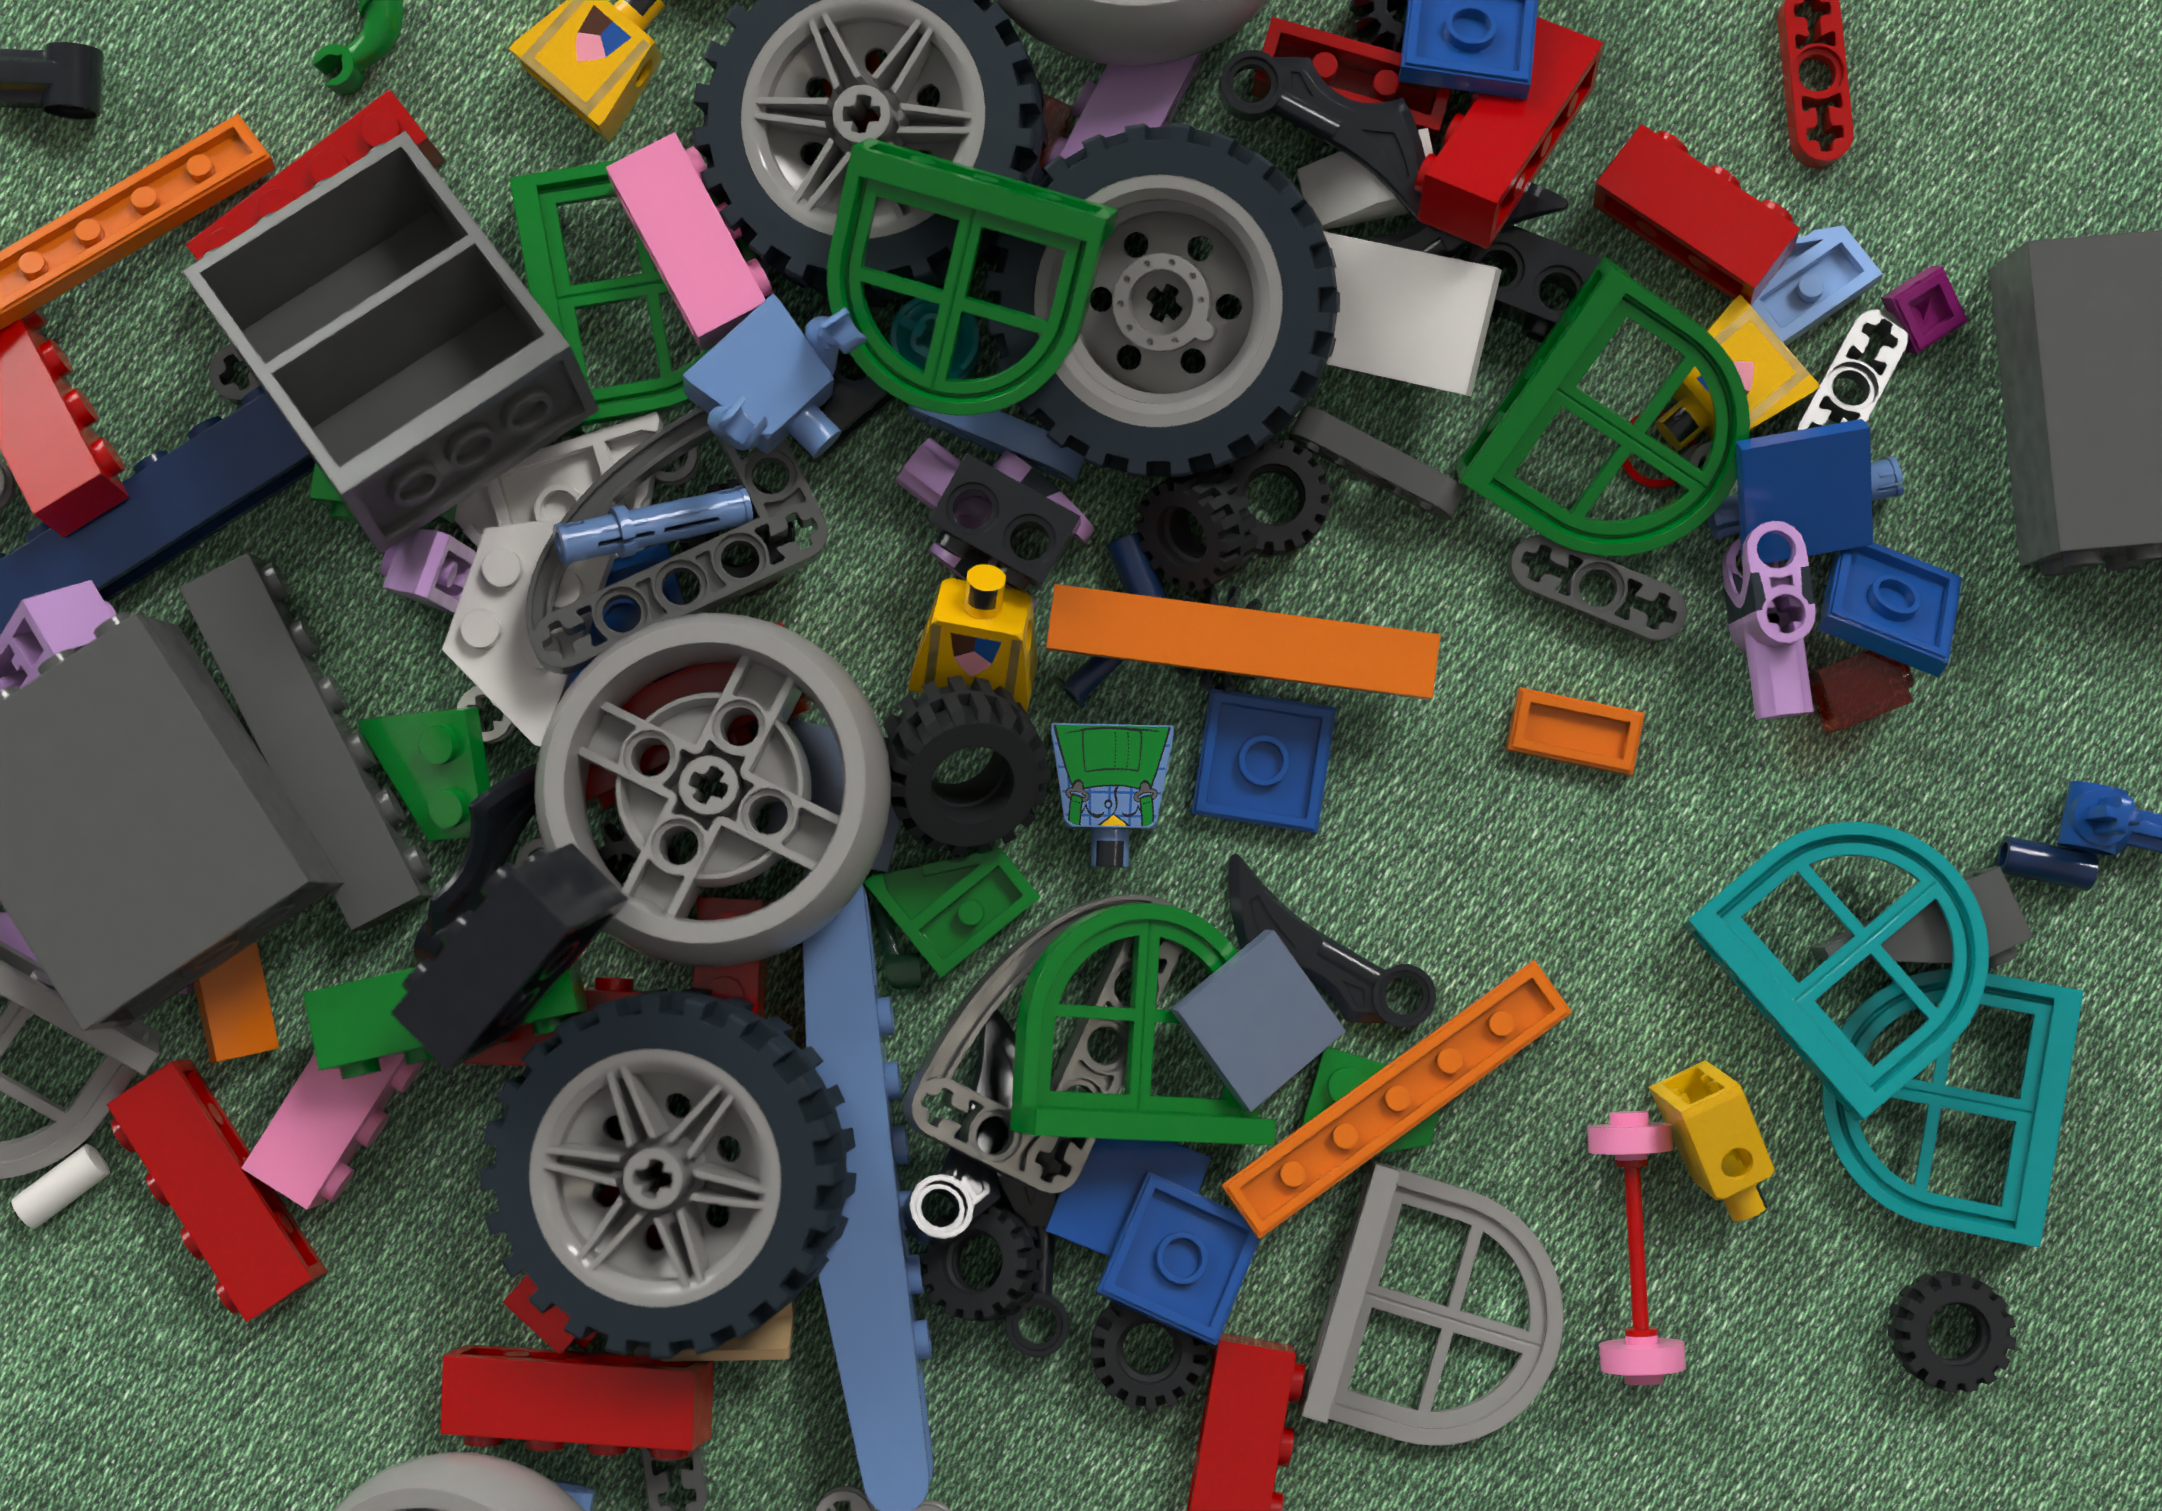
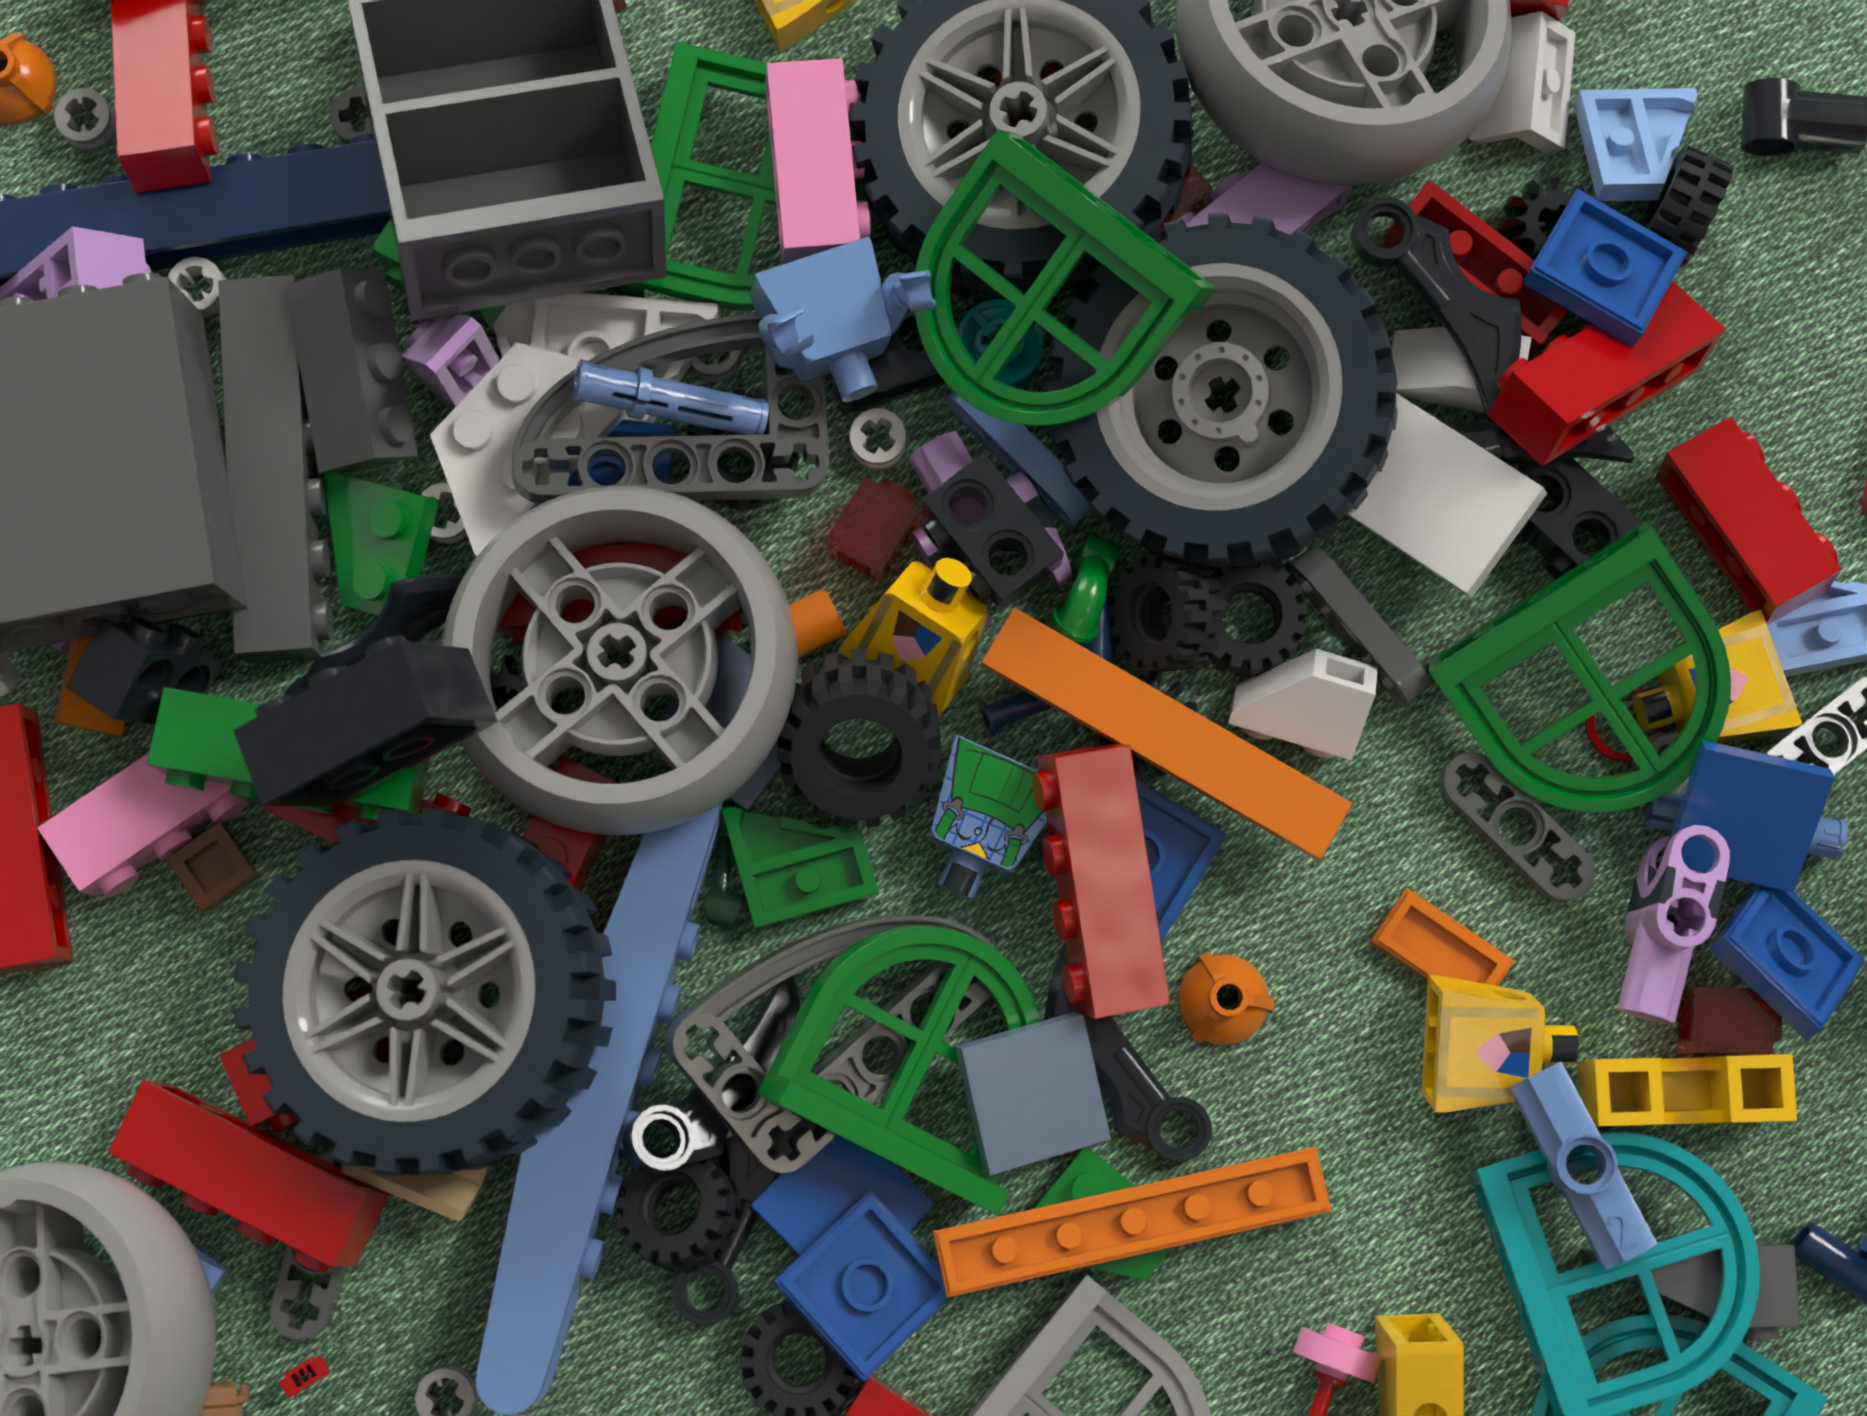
camera: 20 degrees right, 5 degrees down
(141, 589) = (190, 267): none -> white bush
(265, 980) = (134, 661): none -> black brick
(341, 619) = (351, 370): none -> dark grey brick
(418, 1133) = (213, 867): none -> reddish brown plate
(842, 484) = (858, 441): none -> white bush
(875, 672) = (816, 622): none -> orange brick
(892, 560) = (874, 528): none -> clear red brick
(1116, 562) = (1084, 603): none -> green piece
(1239, 801) = (1101, 880): none -> brick
(1360, 555) = (1308, 702): none -> white slope
(1371, 864) = (1200, 1006): none -> orange piece
(1651, 801) = (1485, 1041): none -> yellow torso
(1815, 905) = (1605, 1204): none -> medium blue piece
(1848, 767) = (1688, 1090): none -> yellow arch

